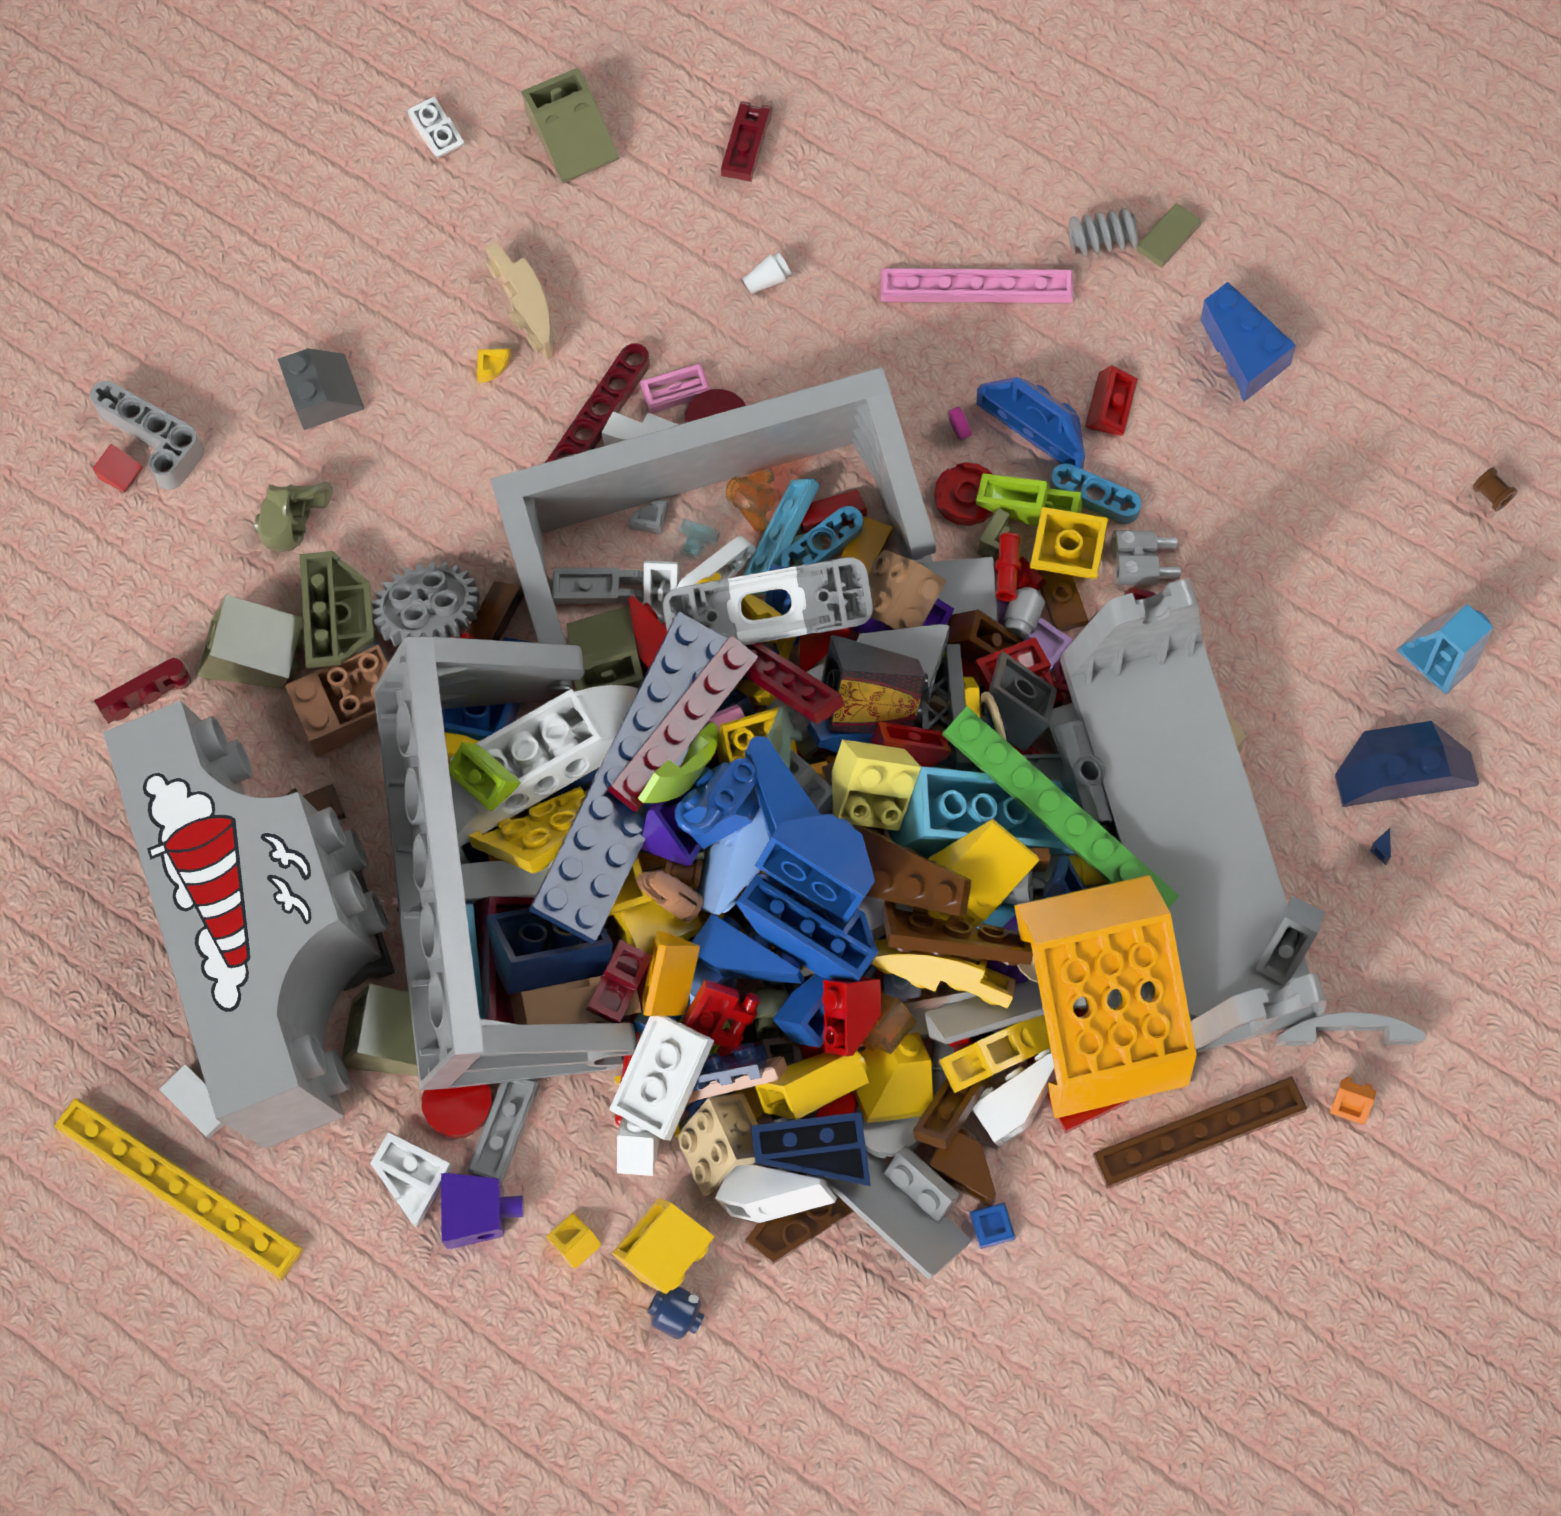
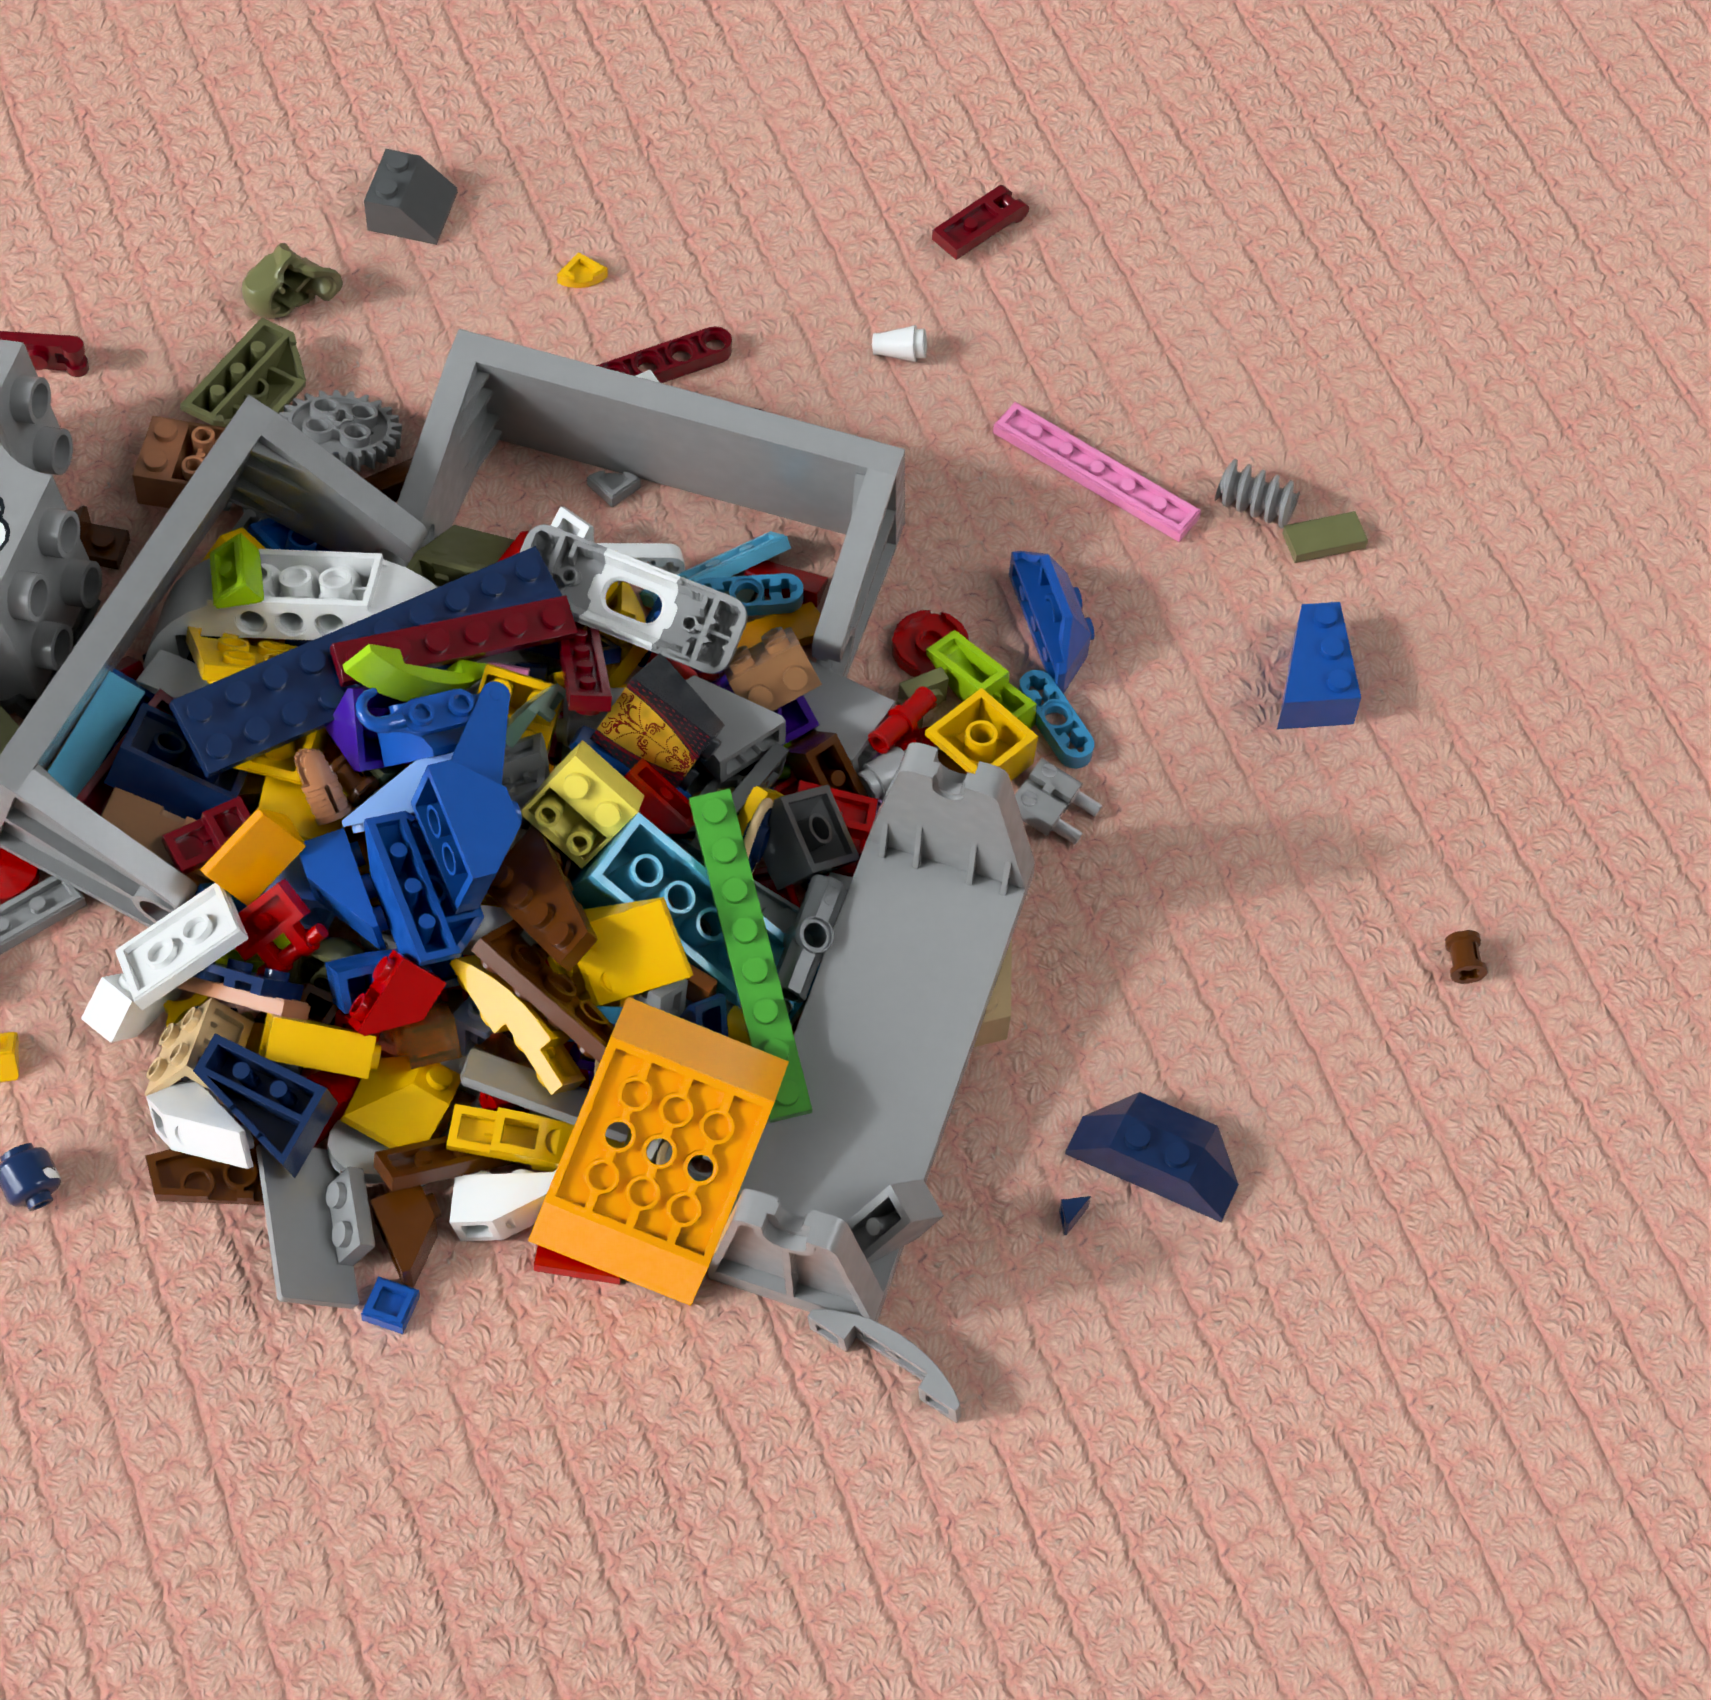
camera: 25 degrees right, 10 degrees down
(117, 468) = (175, 162): slope -> none
(144, 427) = (241, 171): light grey beam -> none
(251, 644) = (153, 365): slope -> none
(435, 127) = (702, 50): white slope -> none
(526, 298) = (657, 236): tan slope -> none
(569, 125) = (823, 113): olive slope -> none
(595, 585) = (503, 505): light grey hinge -> none
(663, 1246) = (61, 1105): yellow slope -> none
(676, 393) = (733, 383): bright pink tile -> none
(697, 537) = (638, 525): clear light blue tile -> none
(754, 497) = (721, 522): clear orange rock -> none
(959, 423) = (973, 577): dark pink tile -> none
(1111, 401) = (1143, 649): red slope -> none
(1199, 1132) = (665, 1356): reddish brown tile -> none
(1353, 1101) = (839, 1425): orange tile -> none
(1448, 646) = (1287, 1064): dark azure wedge -> none

